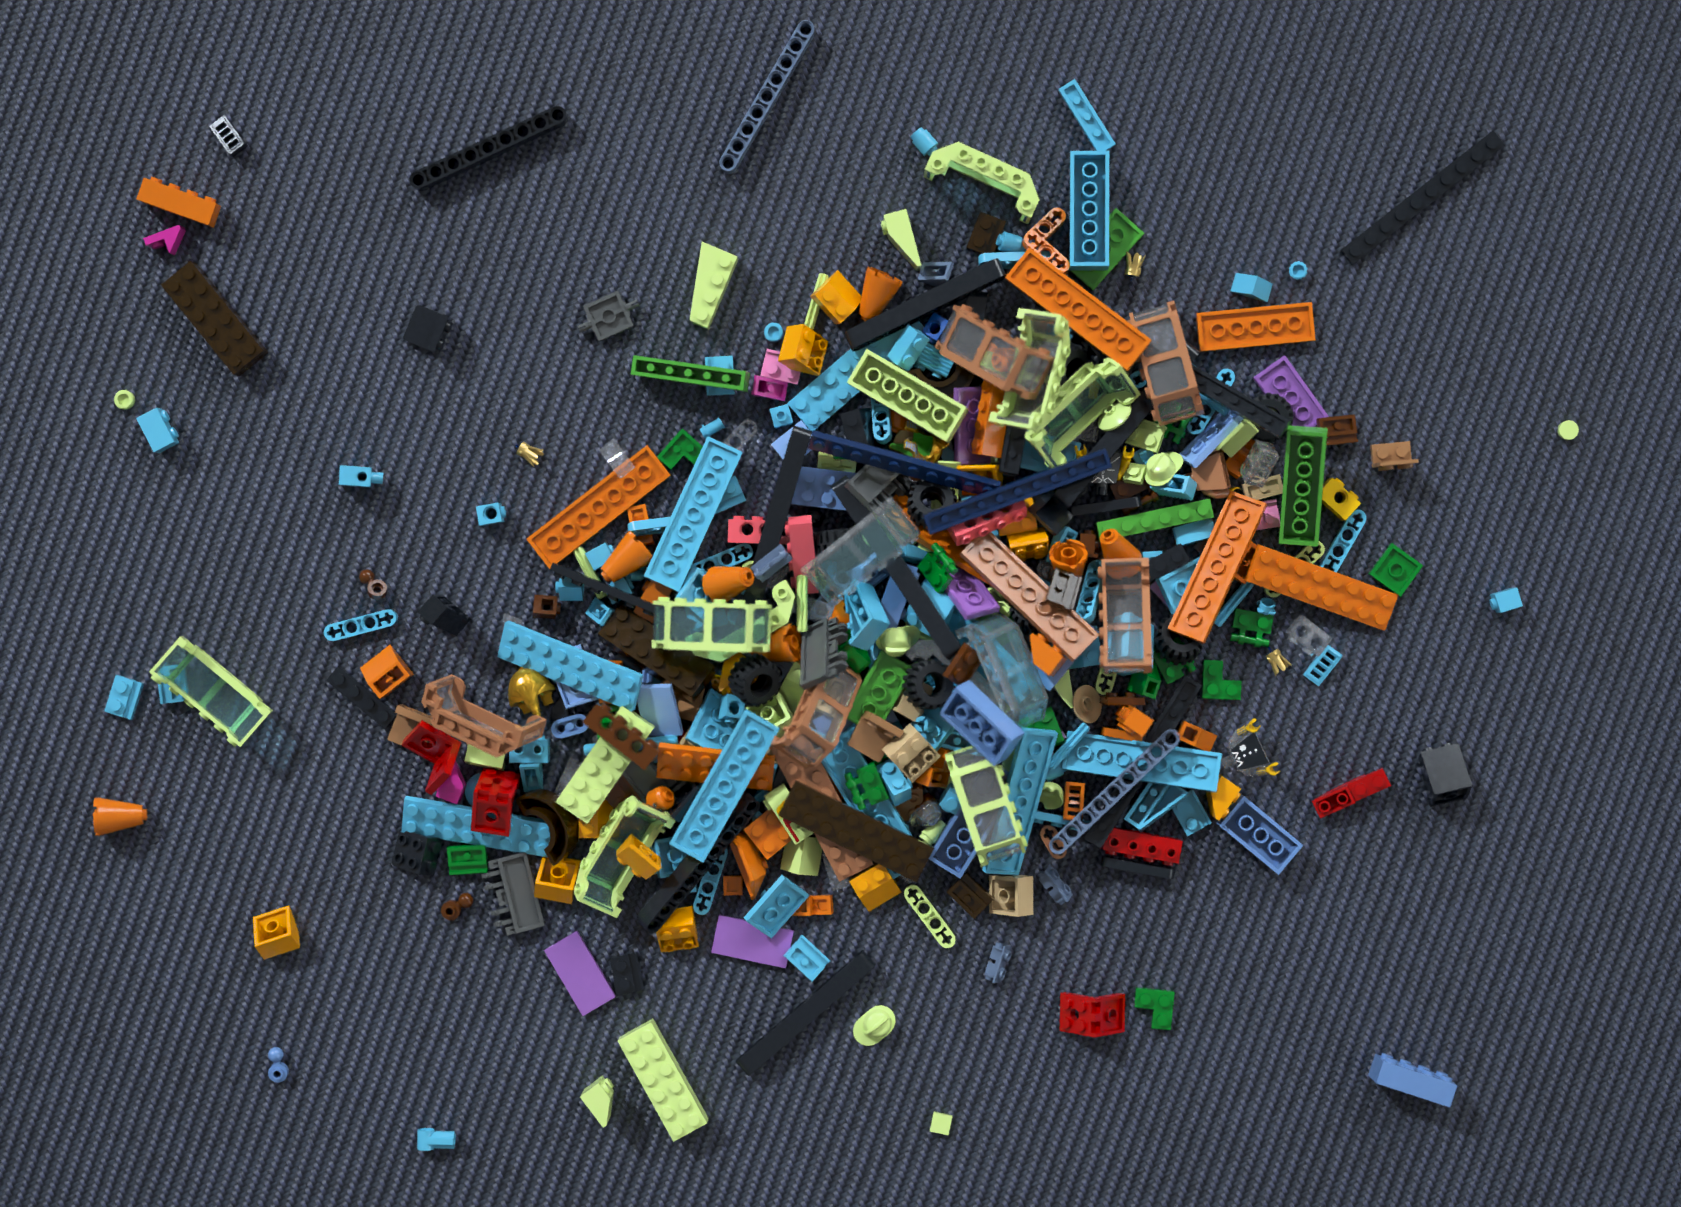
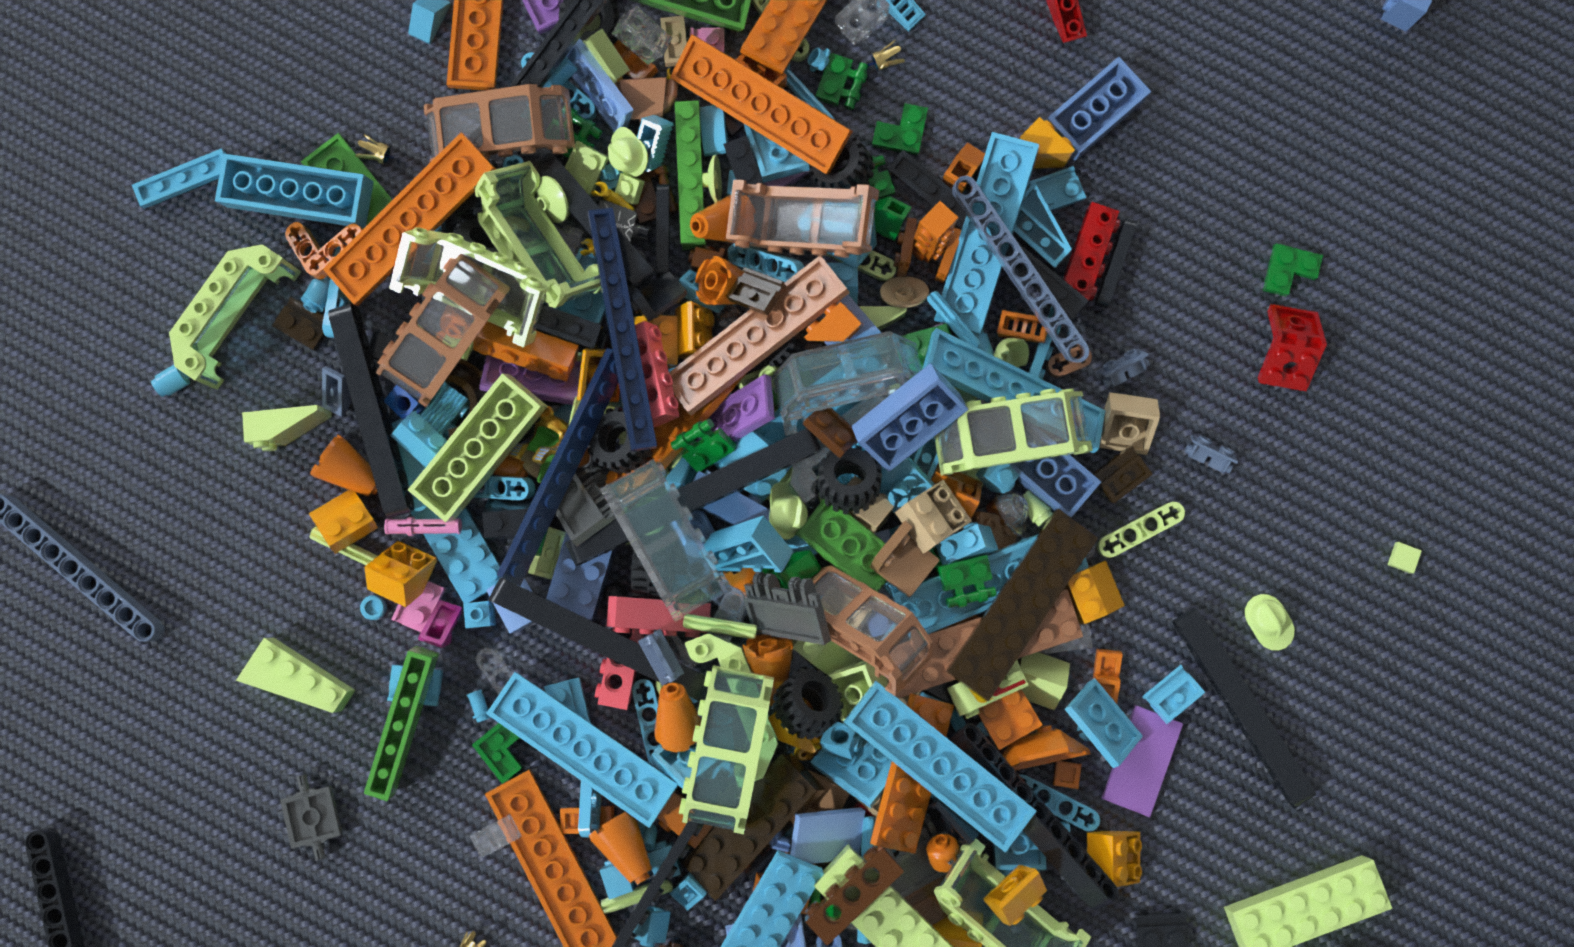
camera: 85 degrees left, 5 degrees down
(838, 338) = (394, 526): none -> bright pink pin
(1152, 538) = (713, 179): none -> yellowish green dish
(1247, 753) = (995, 107): torso -> none

